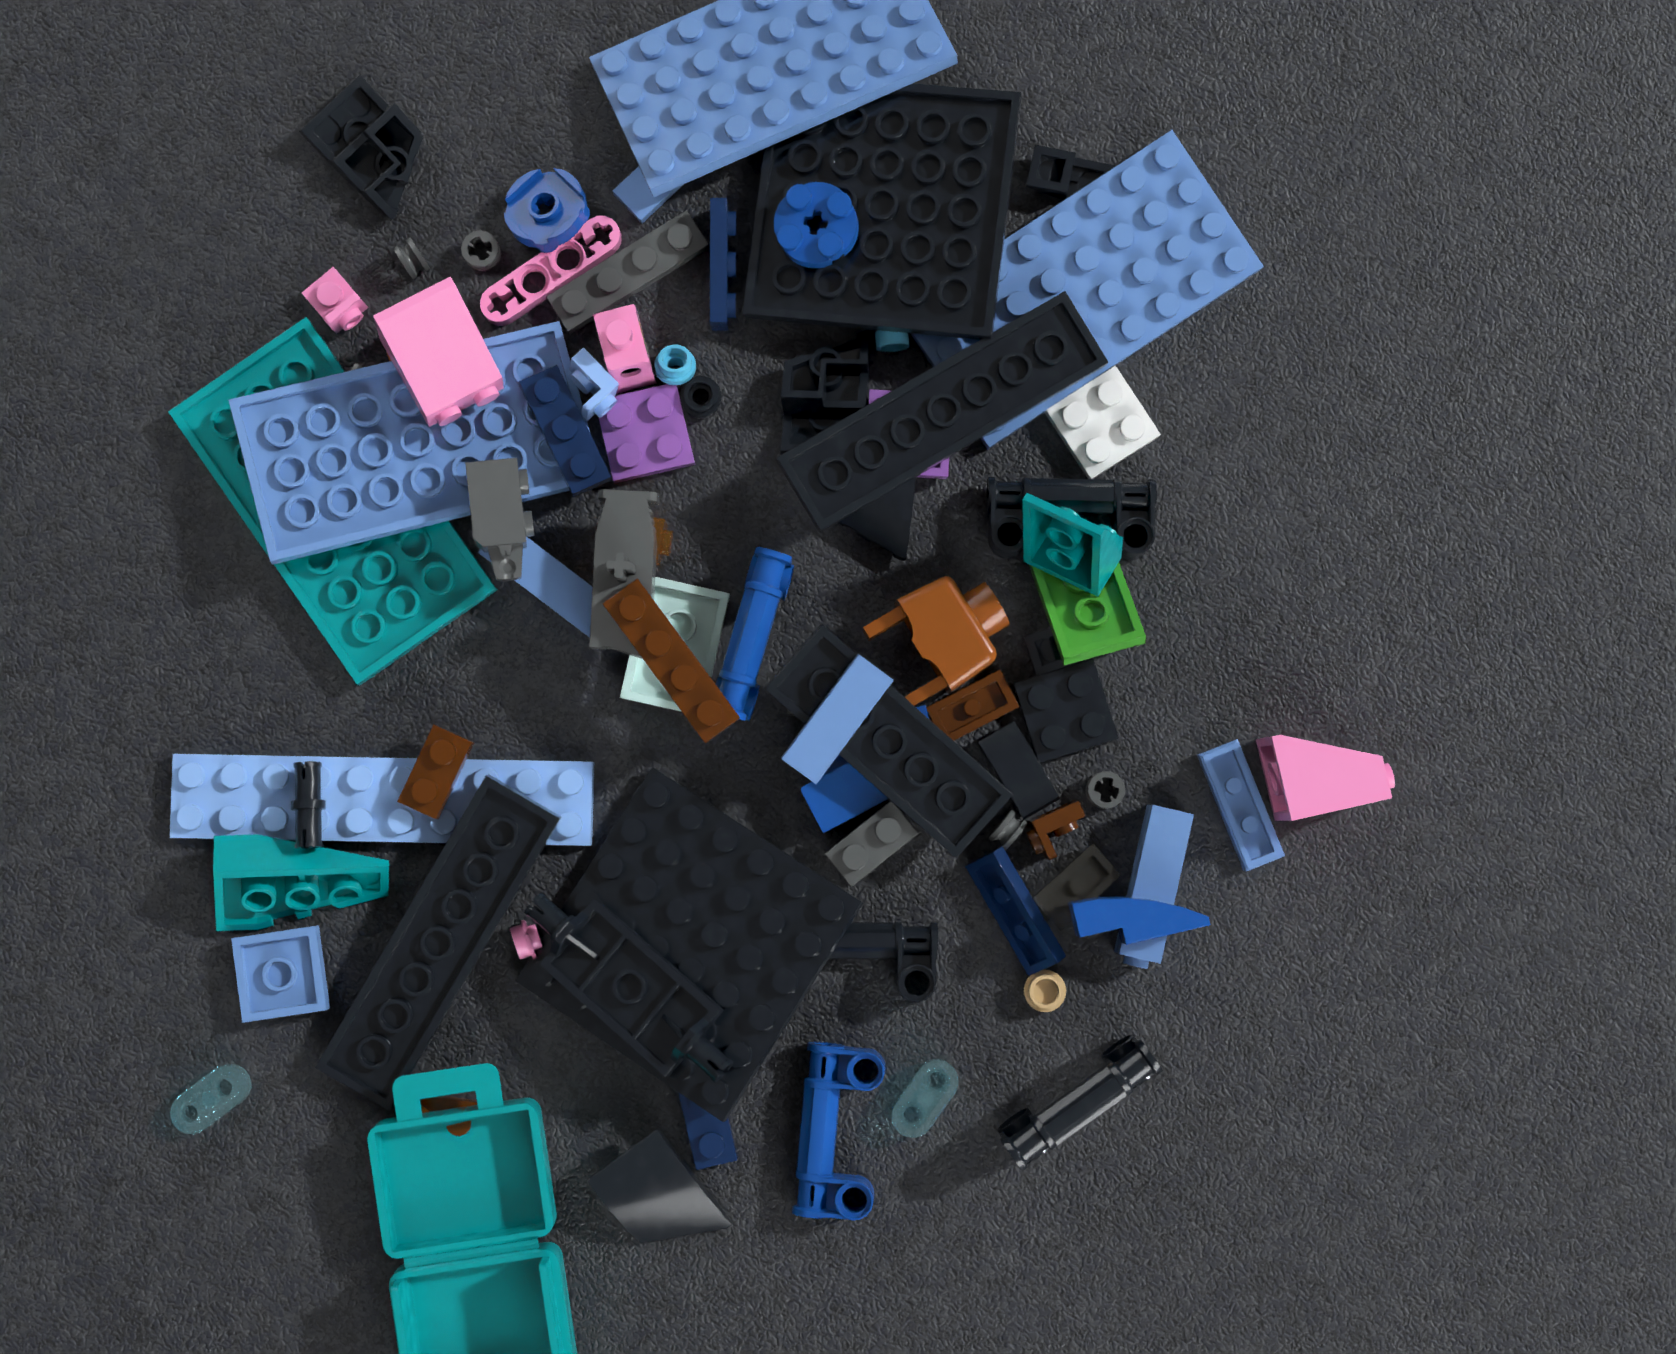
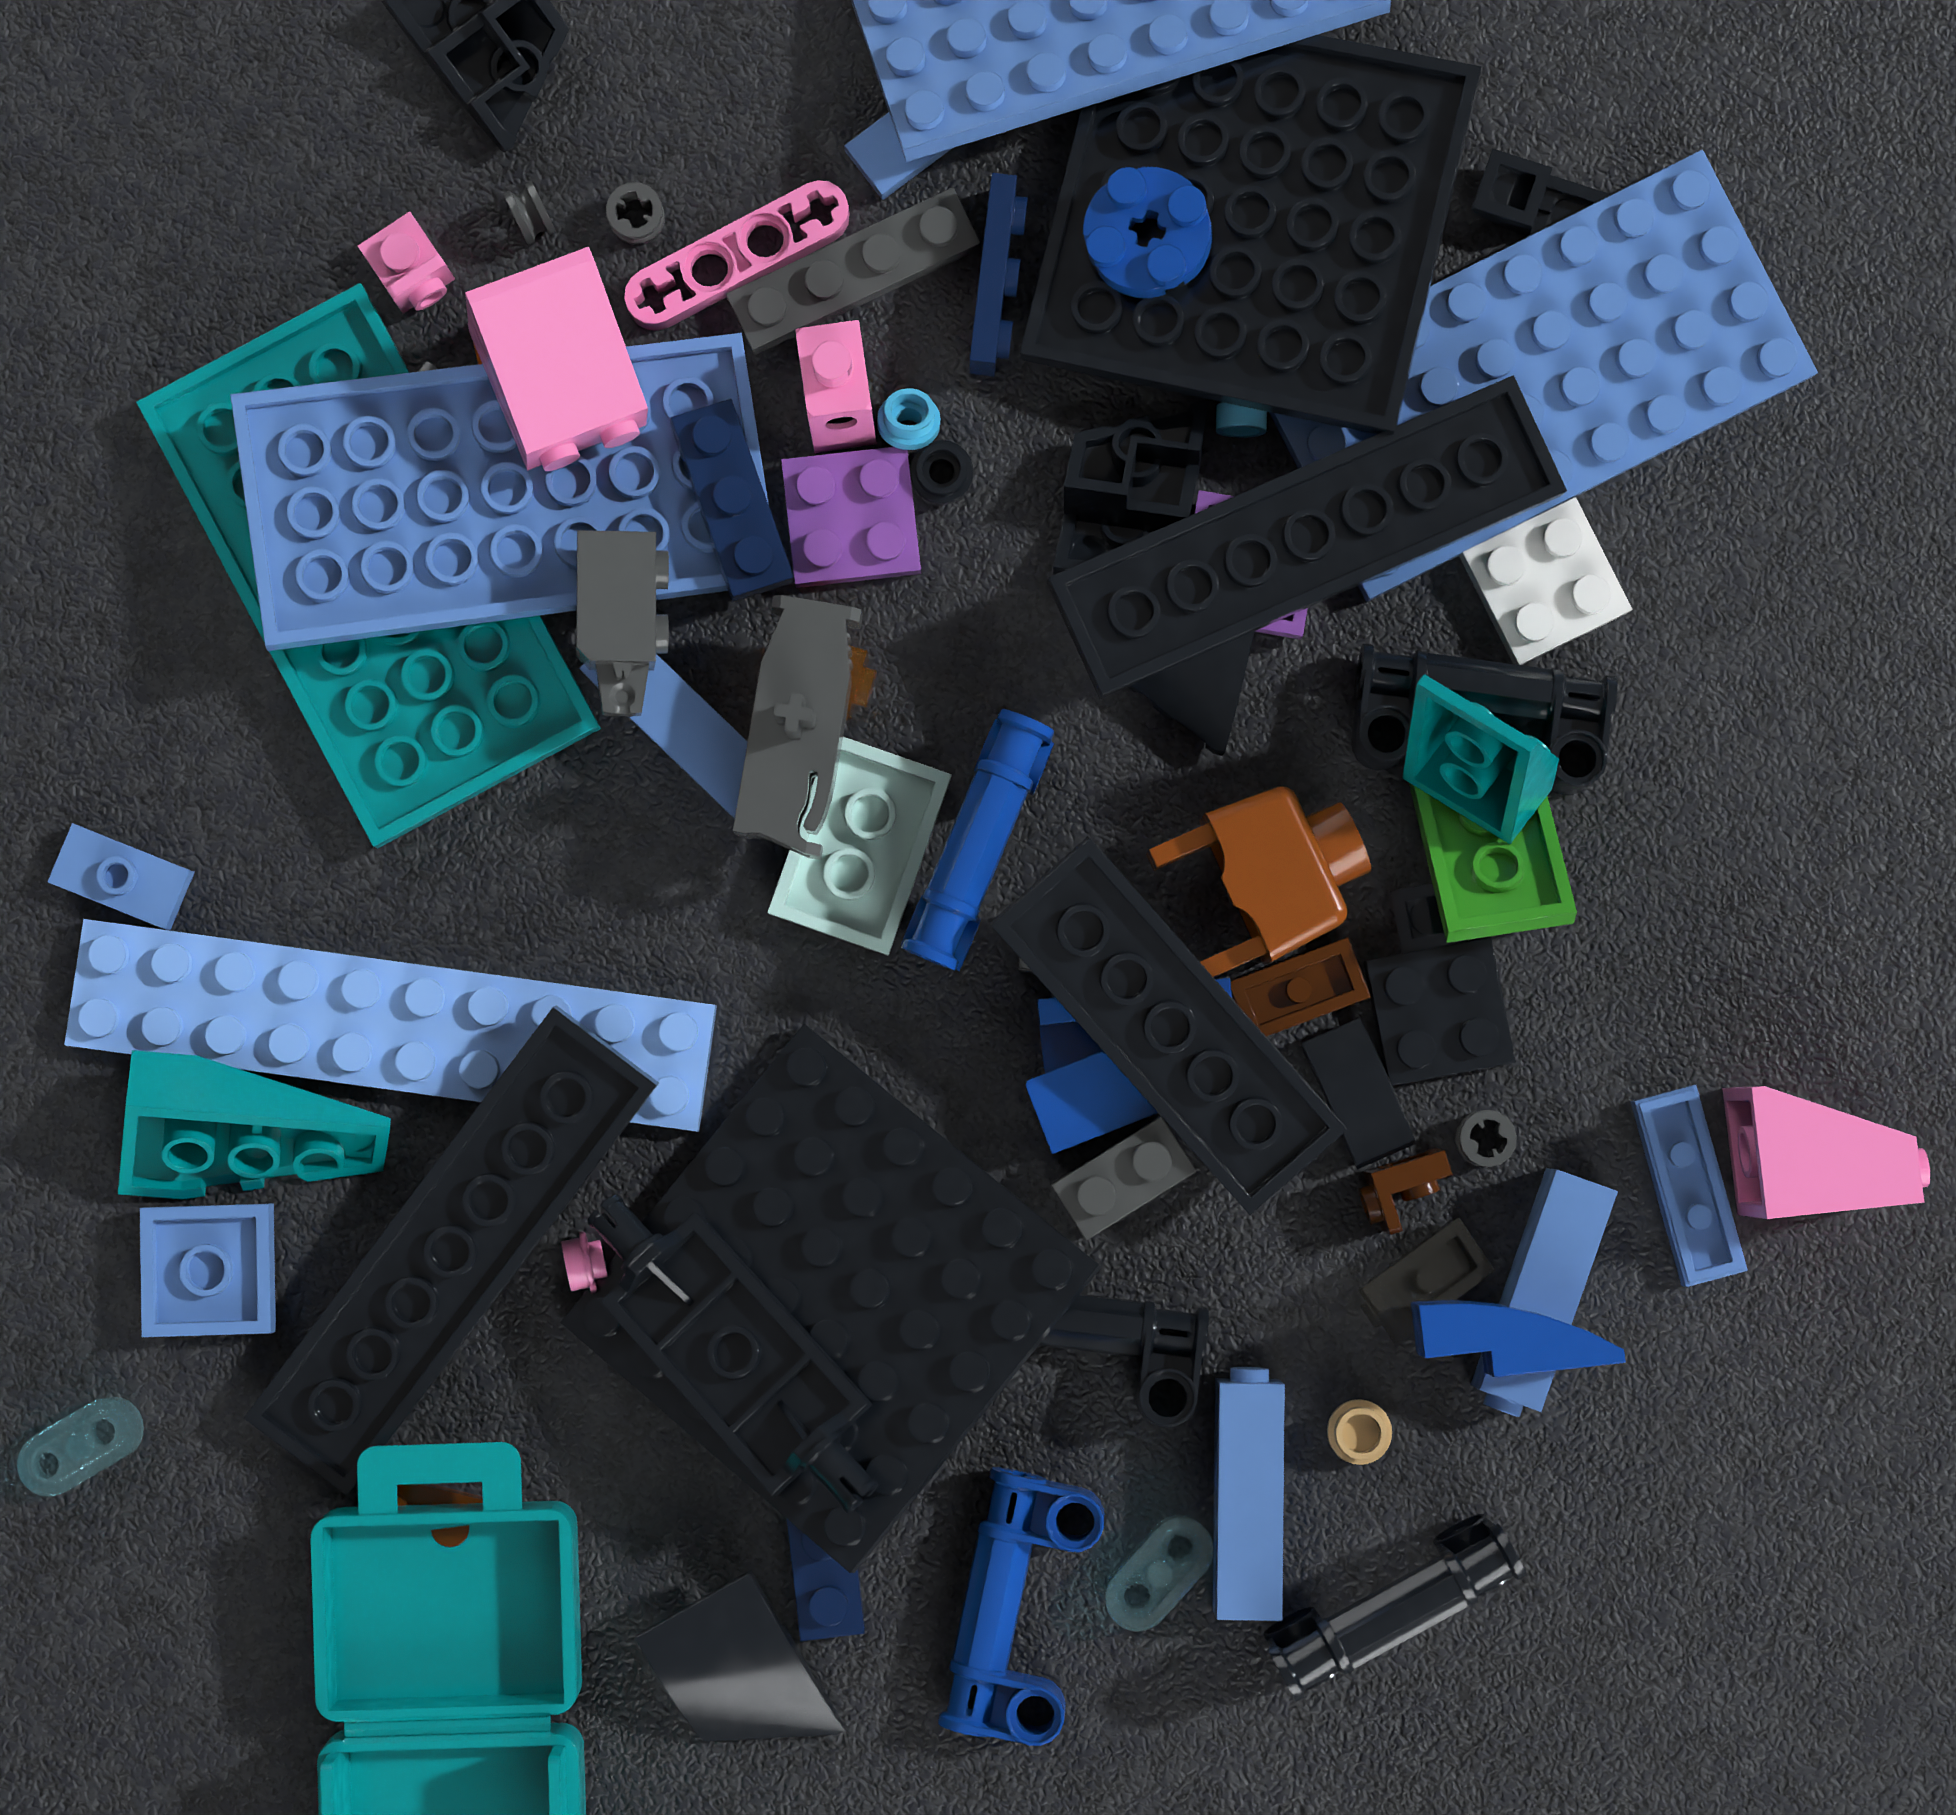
camera: 10 degrees right, 0 degrees up
(194, 723) = (121, 877): none -> medium blue plate
(308, 805) = (279, 1020): black pin -> none
(435, 772) = (477, 993): reddish brown plate -> none
(558, 225) = (746, 192): blue plate -> none
(593, 378) = (782, 423): light blue bracket -> none
(671, 660) = (854, 866): reddish brown plate -> none
(837, 718) = (1095, 983): medium blue tile -> none
(977, 1041) = (1248, 1496): none -> medium blue brick
(1007, 830) = (1331, 1182): dark grey bush -> none
(1015, 911) = (1329, 1306): dark blue plate -> none

